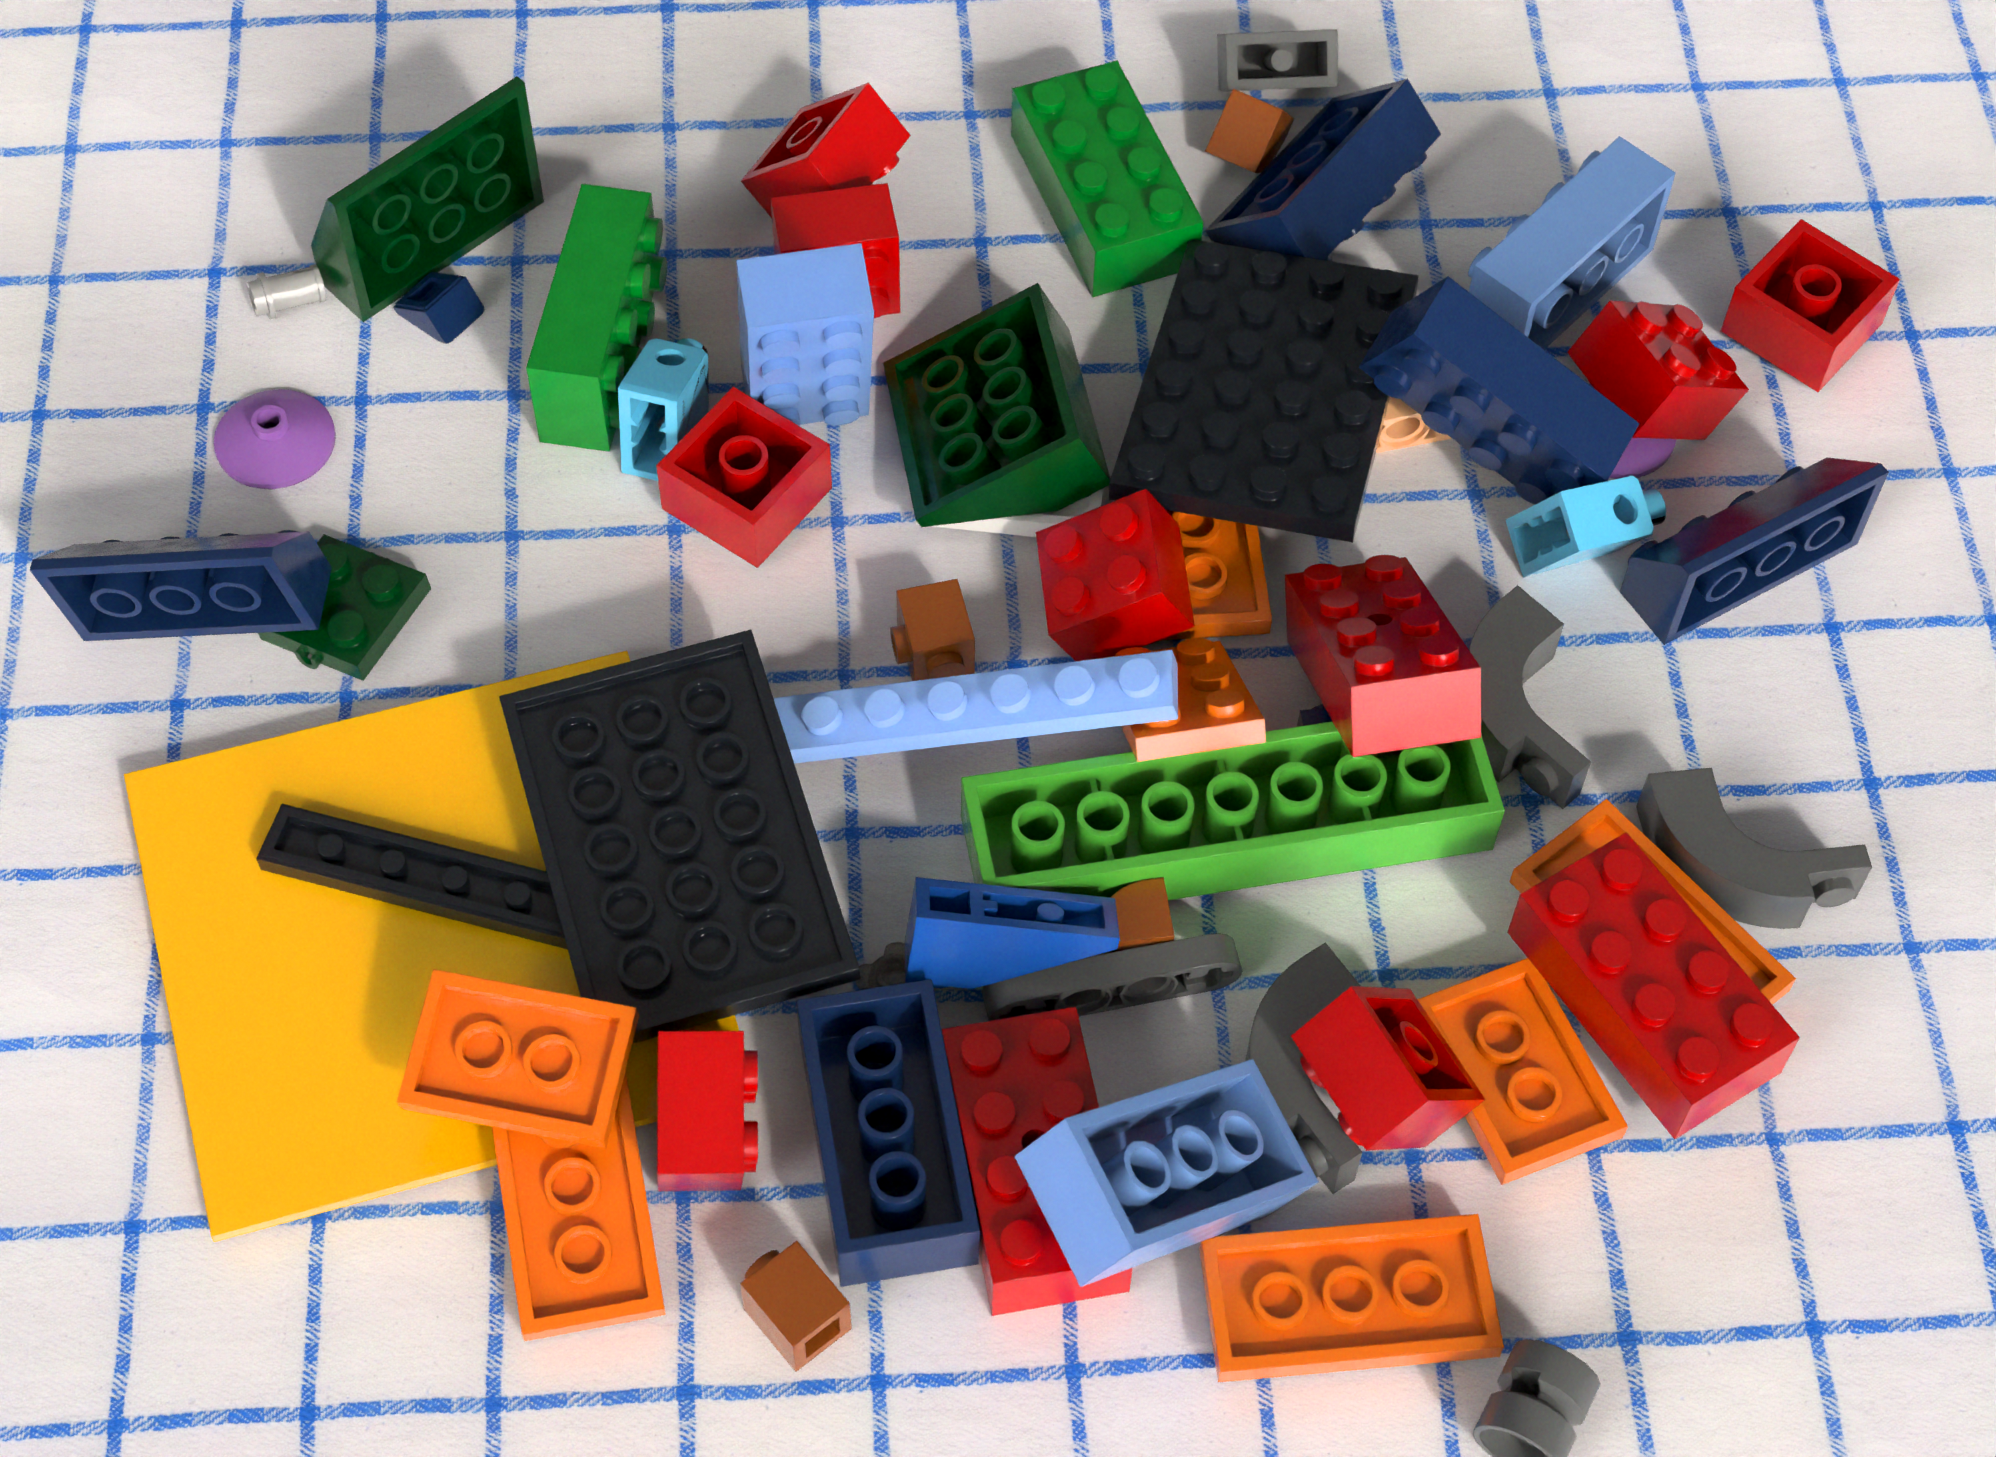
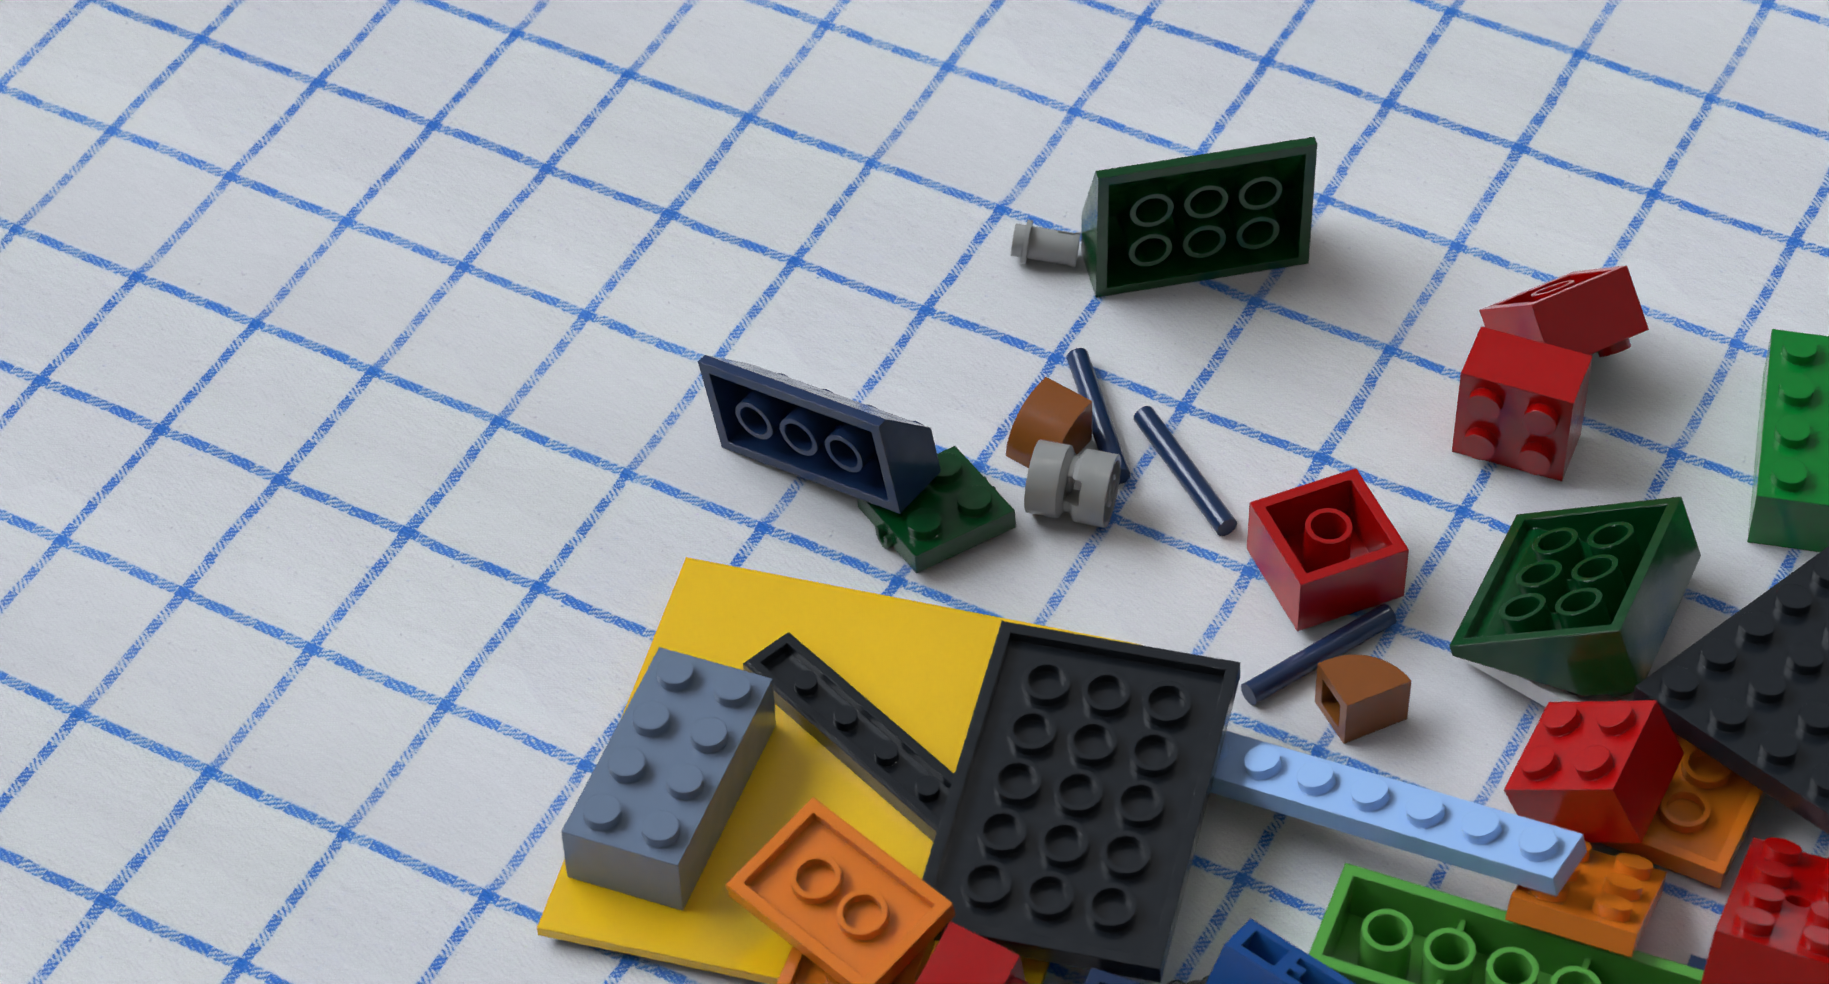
camera: 35 degrees right, 10 degrees down
(259, 1016) = (669, 778): none -> sand blue brick
(276, 456) = (966, 358): medium lavender dish -> none
(407, 475) = (1050, 415): none -> dark orange brick
(441, 306) = (1166, 310): dark blue slope -> none
(441, 440) = (1102, 425): none -> dark blue bar
(443, 527) = (1052, 481): none -> light grey wheel
(557, 458) = (1185, 471): none -> dark blue bar
(595, 316) = (1280, 367): green brick -> none
(662, 382) = (1294, 451): medium azure torso -> none
(793, 575) = (1324, 649): none -> dark blue bar
(807, 333) = (1434, 447): medium blue brick -> none
(856, 603) = (1361, 694): none -> dark orange brick
(933, 631) = (1412, 742): dark orange brick -> none

